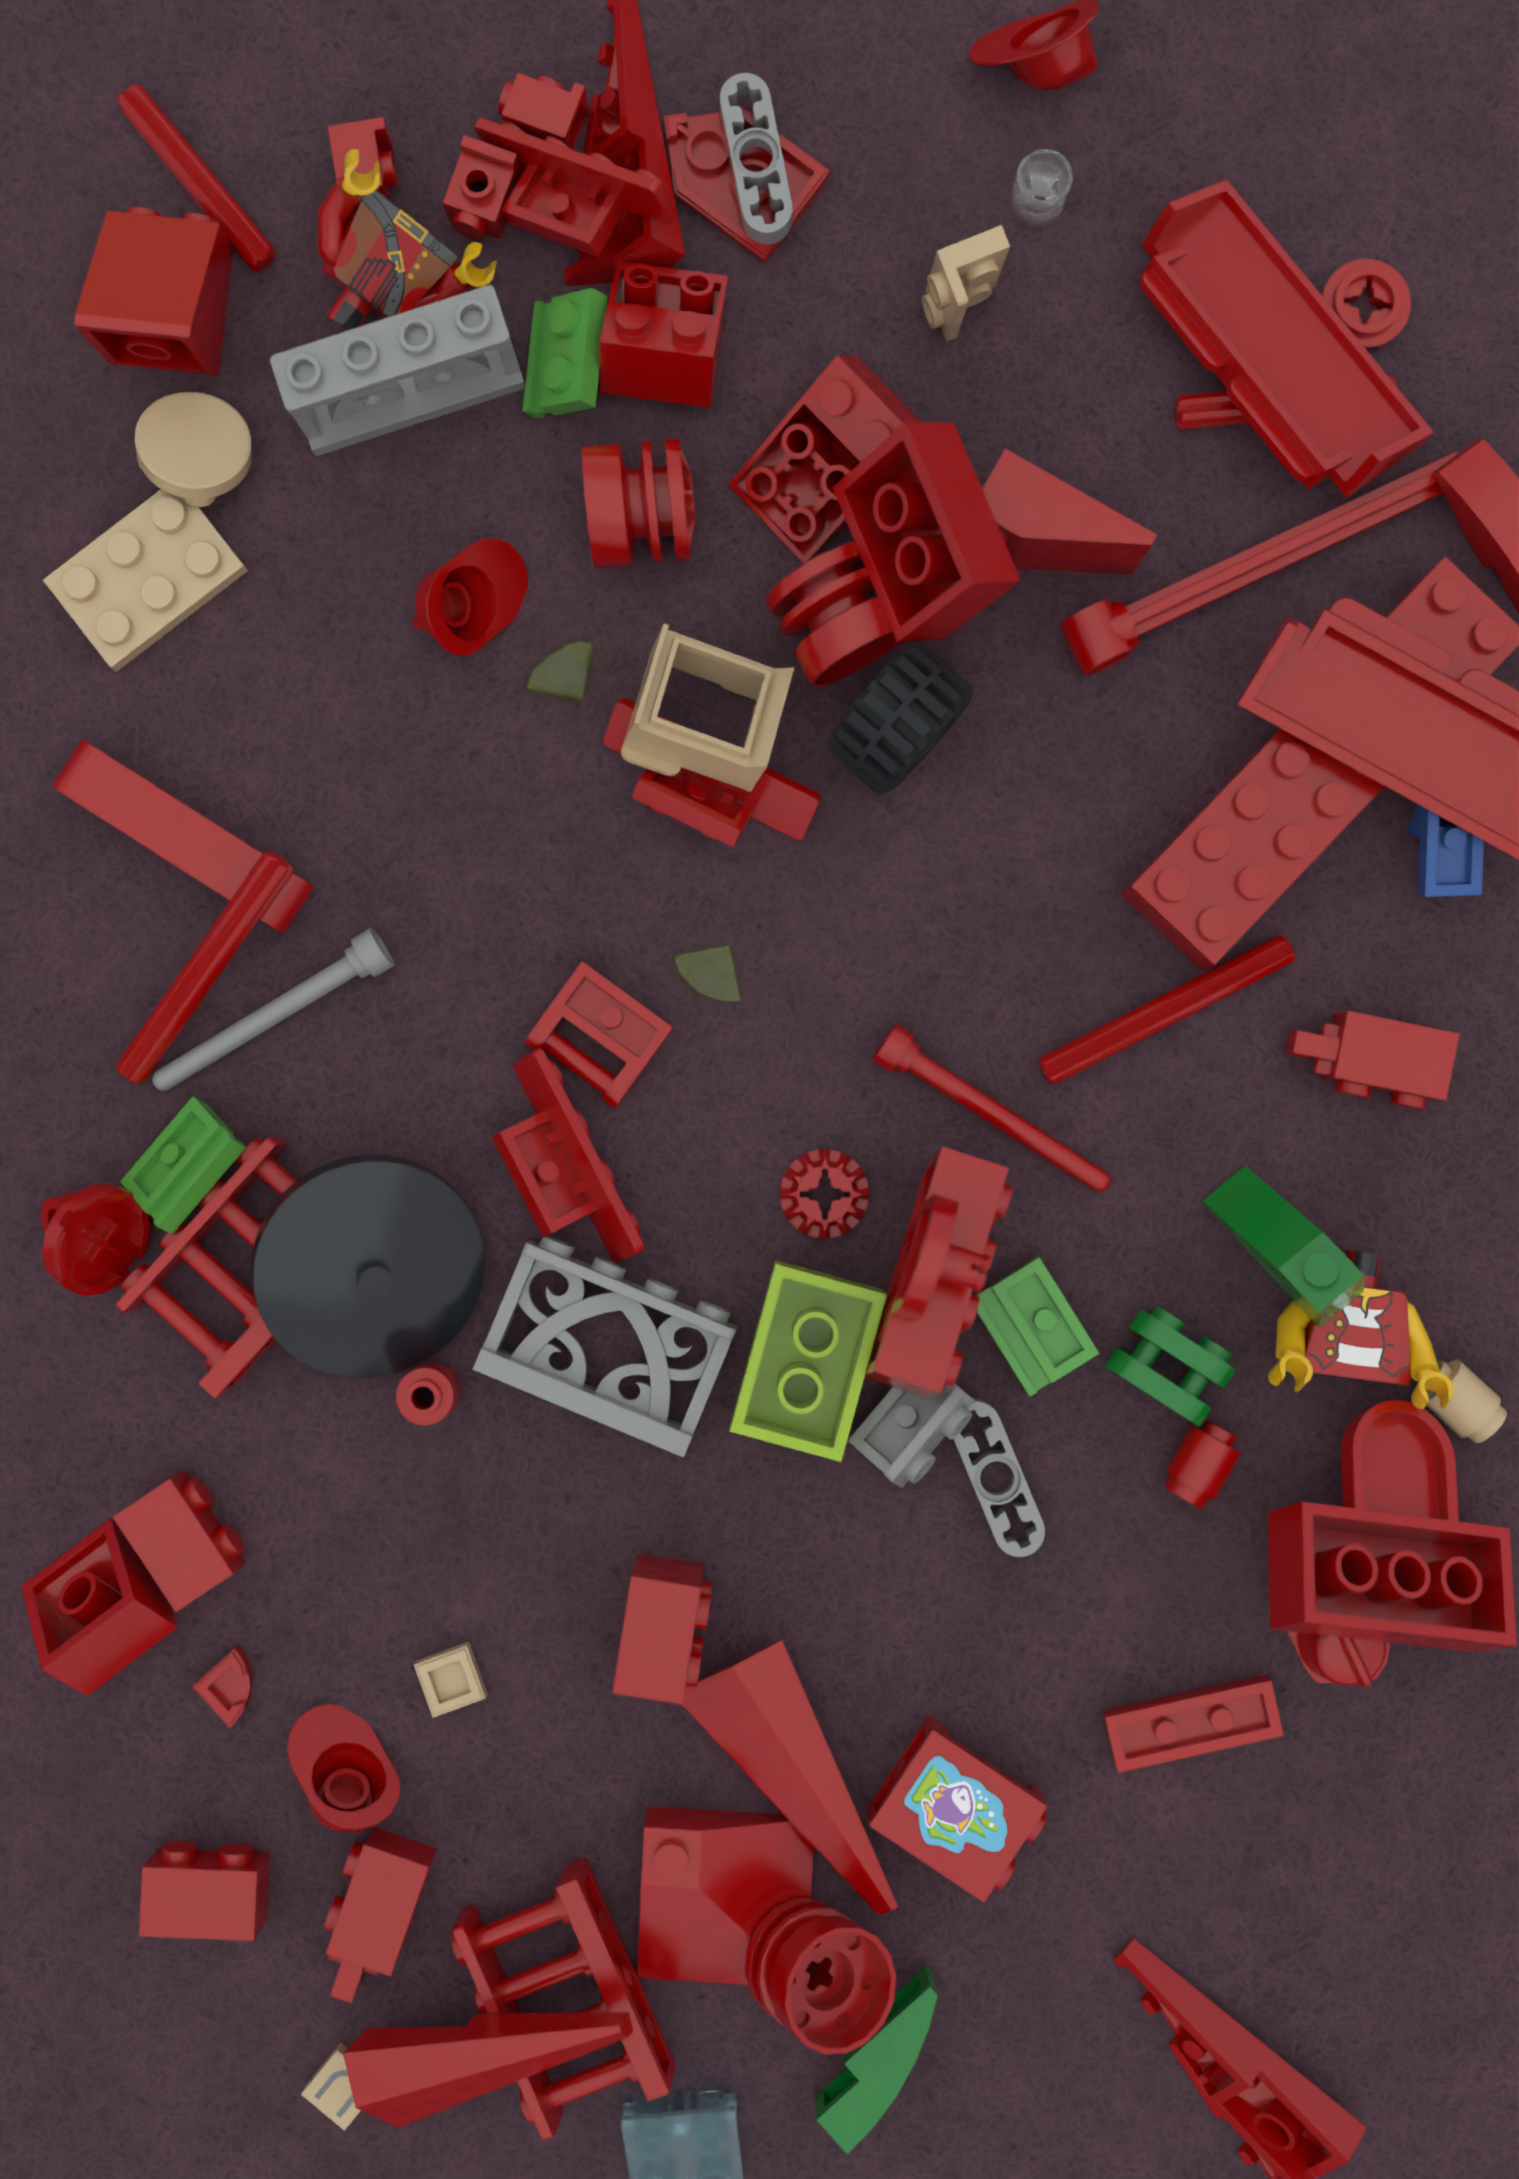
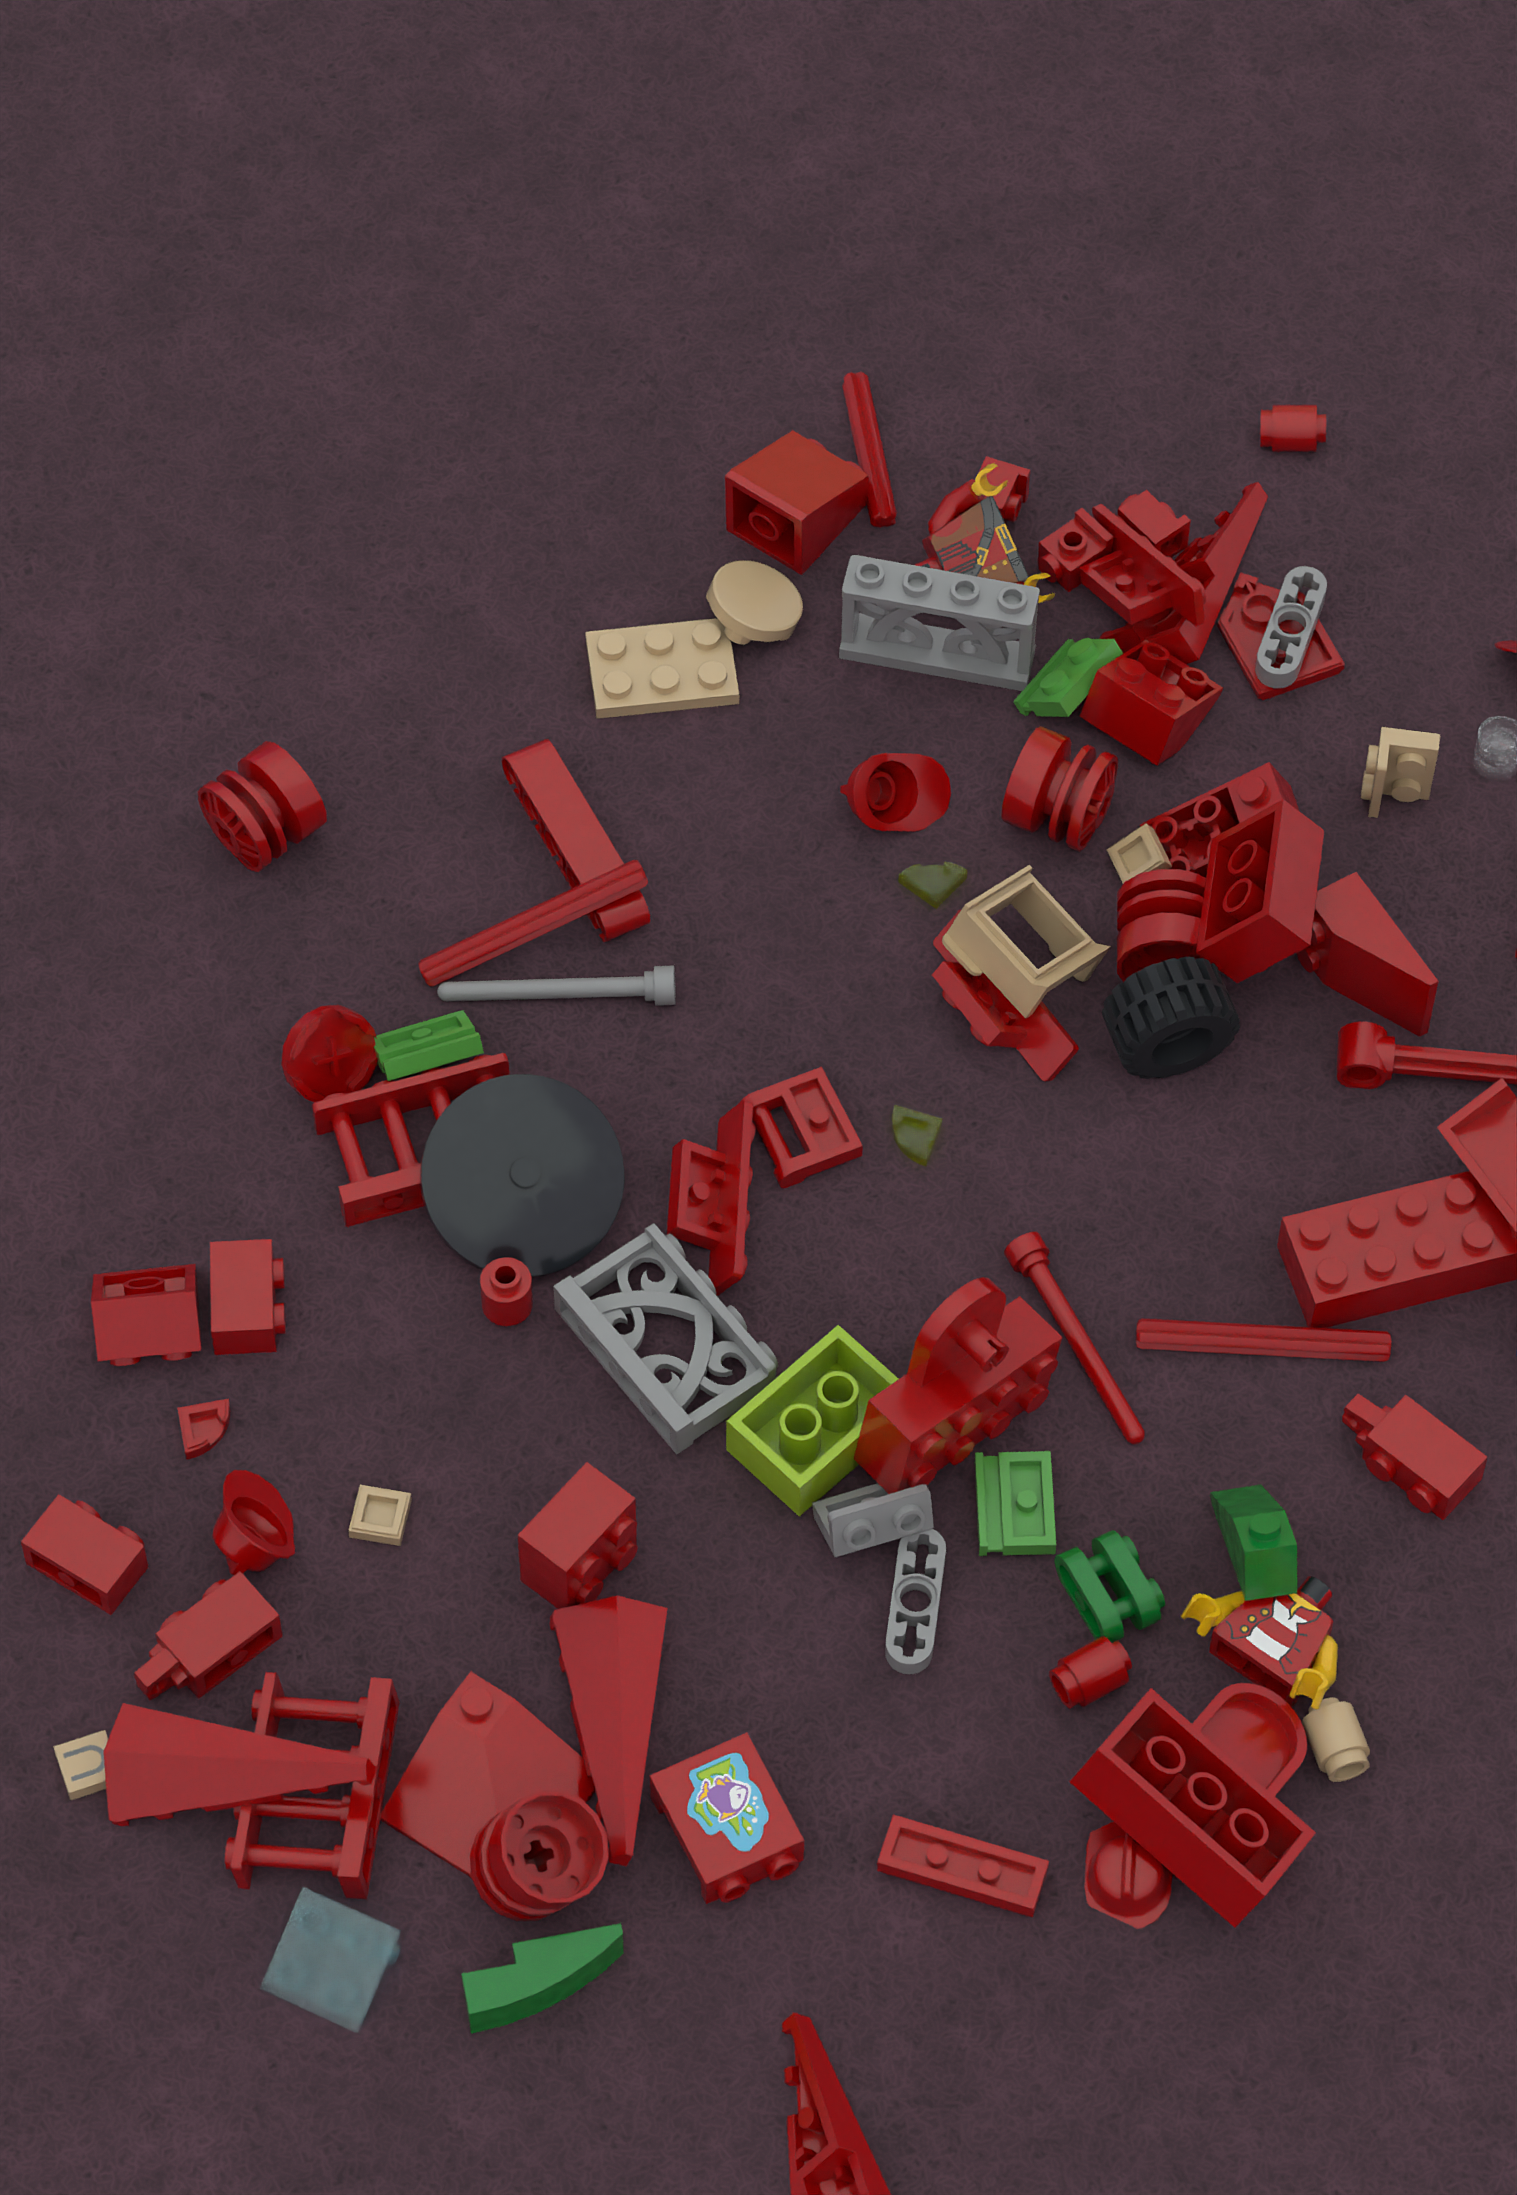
camera: 30 degrees right, 30 degrees down
(753, 530) = (1138, 853): none -> tan tile
(843, 1175) = (883, 1328): red gear -> none

